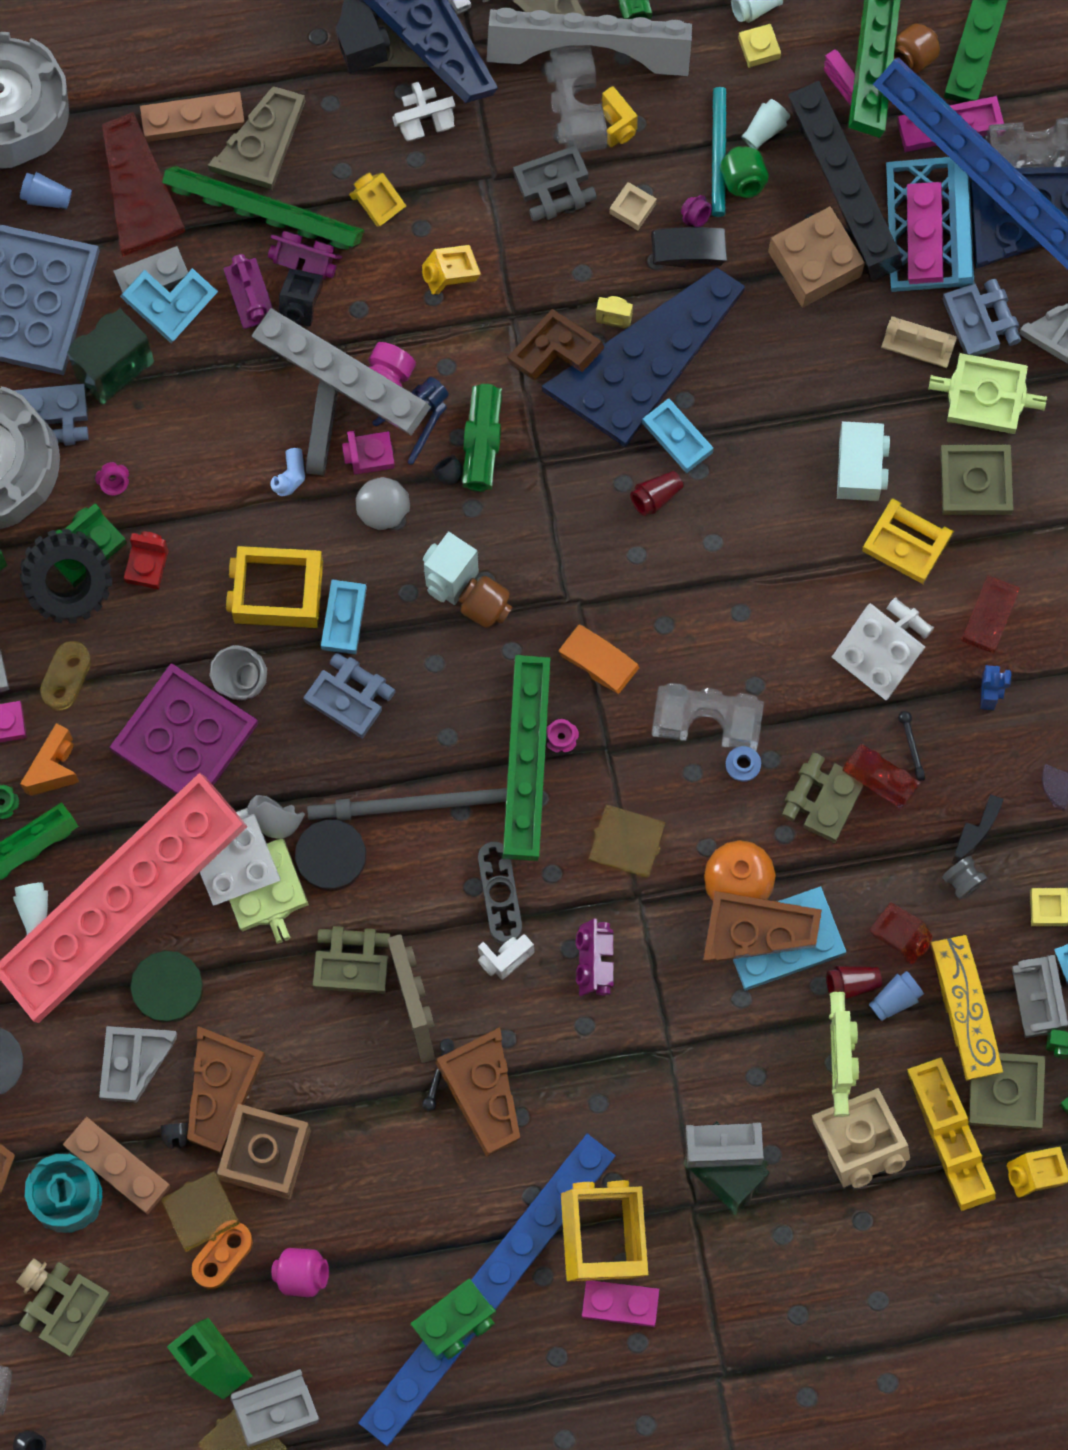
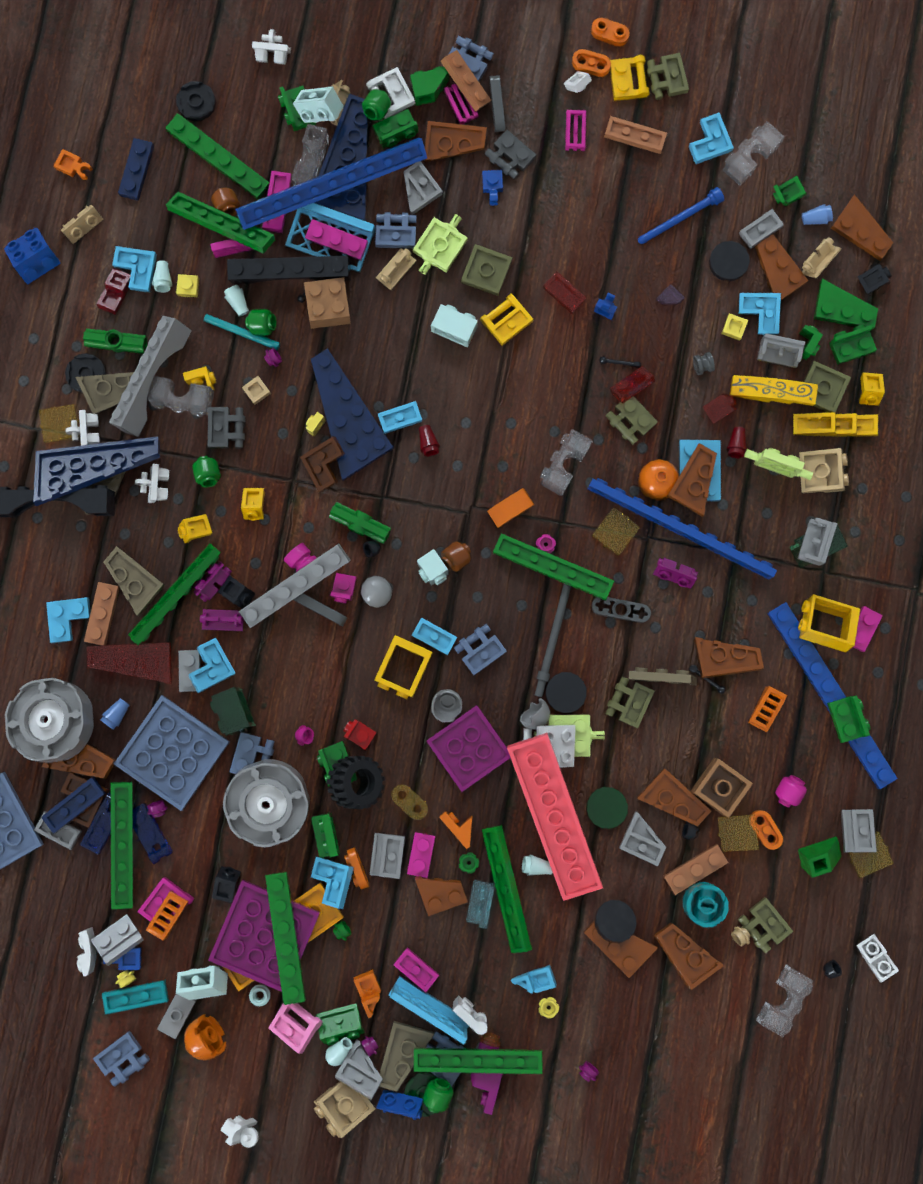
camera: 70 degrees left, 10 degrees up
(167, 59) = (62, 613): none -> medium azure plate
(294, 475) = (341, 635): light blue arm -> none
(421, 1201) = (773, 712): none -> orange slope
(434, 394) = (325, 543): dark blue plant -> none
(473, 180) = (206, 471): none -> green head
(511, 956) = (659, 615): white bracket -> none
(671, 954) = (688, 531): none -> blue plate
(688, 244) = (291, 369): black slope -> none
(739, 773) = (594, 459): medium blue plate -> none
(880, 649) = (564, 356): white plate -> none
(896, 996) = (753, 423): medium blue cone -> none
(972, 835) = (684, 351): black slope -> none

